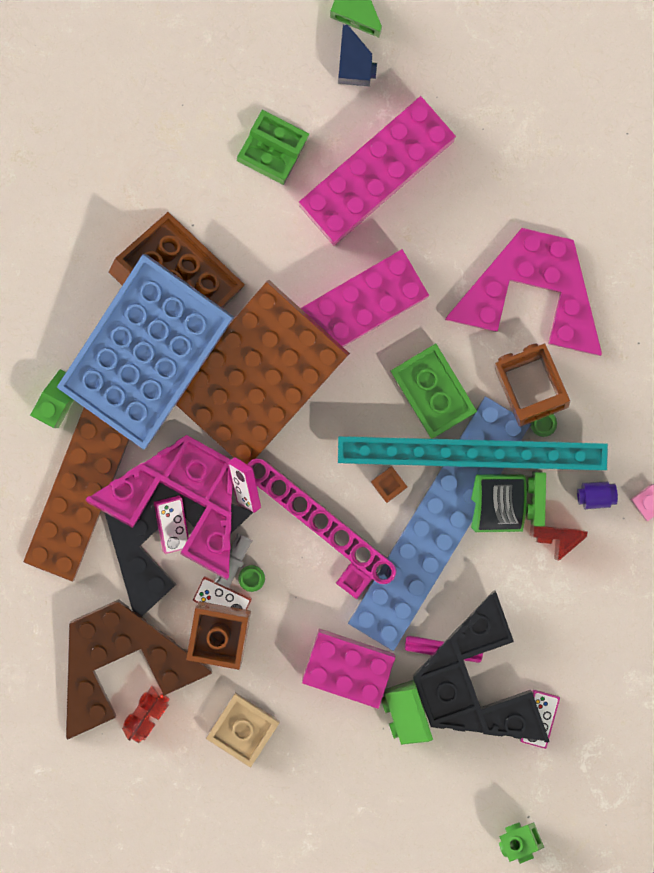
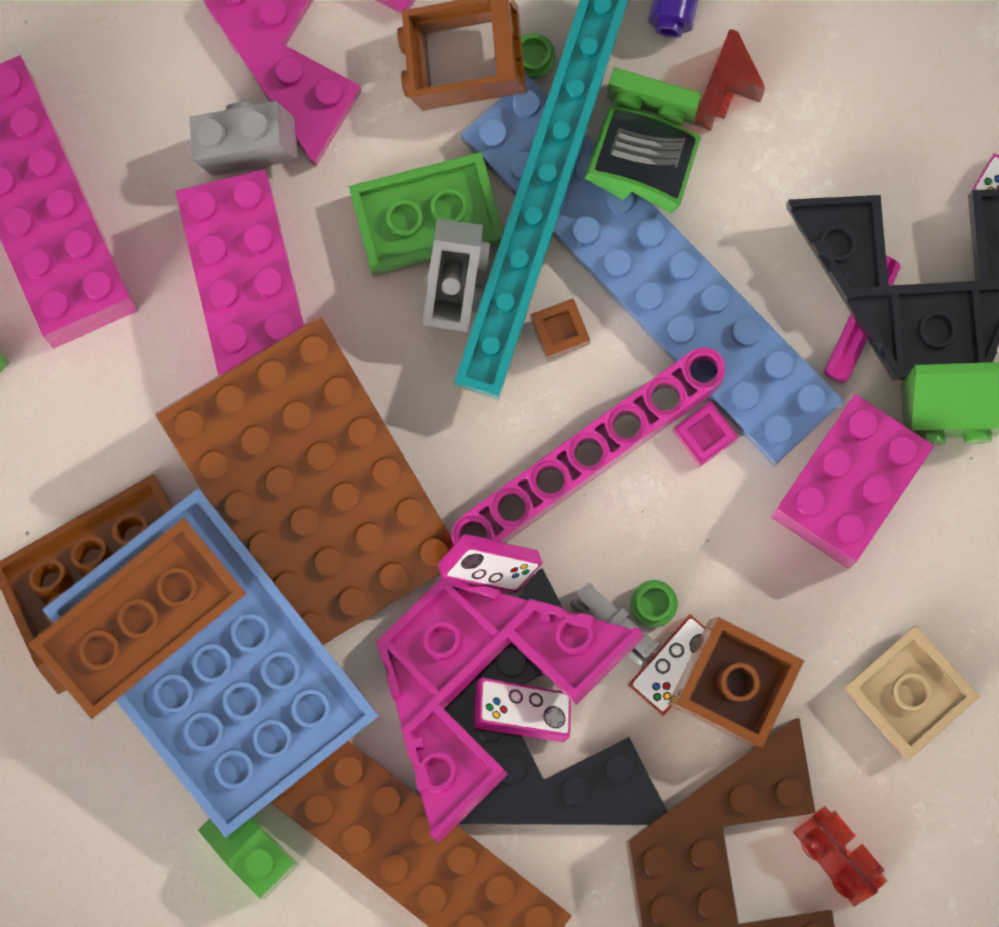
camera: 70 degrees left, 10 degrees down
(152, 307) = (137, 618): none -> dark orange plate
(399, 417) = (453, 274): none -> light grey brick
(446, 276) = (243, 137): none -> light grey brick

